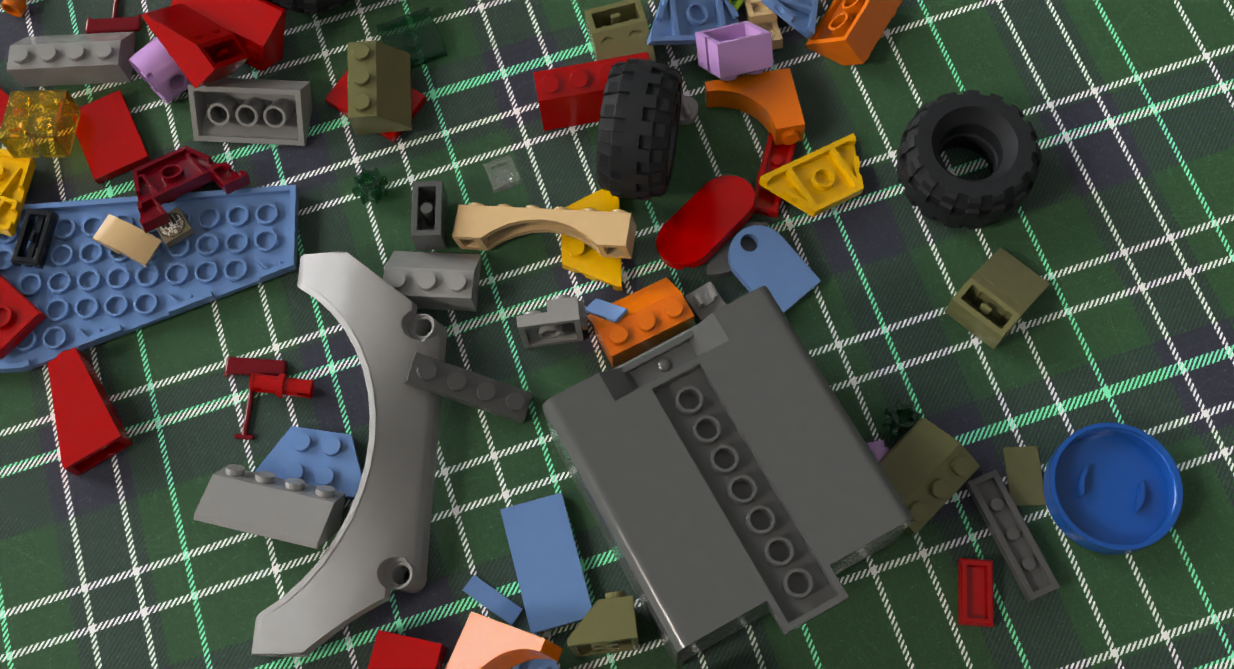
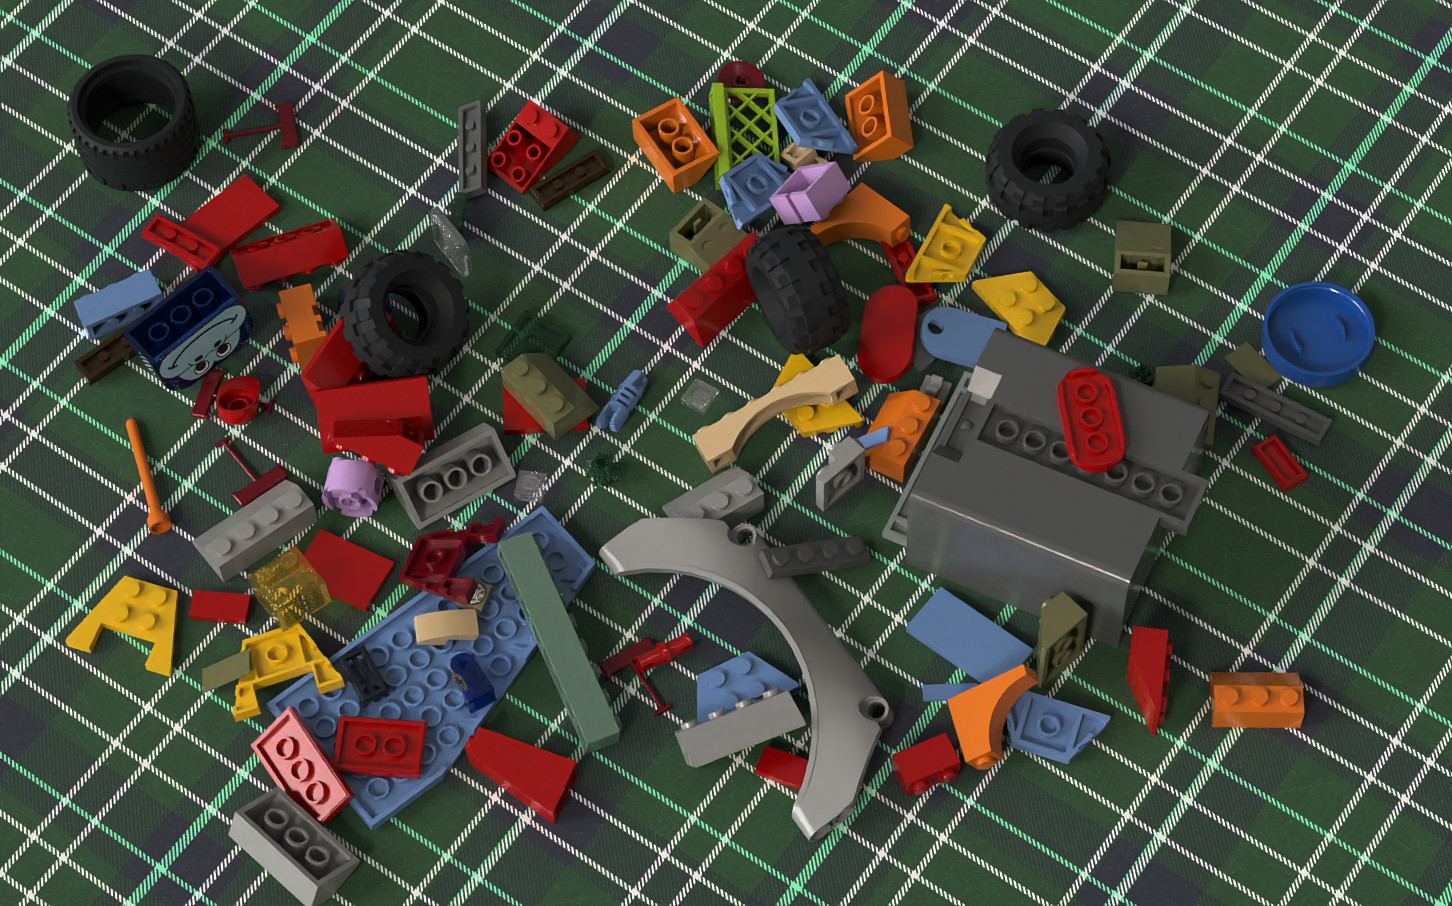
camera: 40 degrees left, 10 degrees down
(103, 304) = (469, 674): none -> clear blue leg
(198, 317) = (559, 643): none -> sand green brick
(289, 563) = (782, 767): none -> red tile
(307, 161) = (530, 486): none -> clear plate
(429, 215) = (674, 459): dark grey brick -> none
(434, 137) = (623, 401): none -> medium blue hinge
(777, 448) = (1091, 420): none -> red tile
(850, 275) = (1023, 304): none -> yellow wing

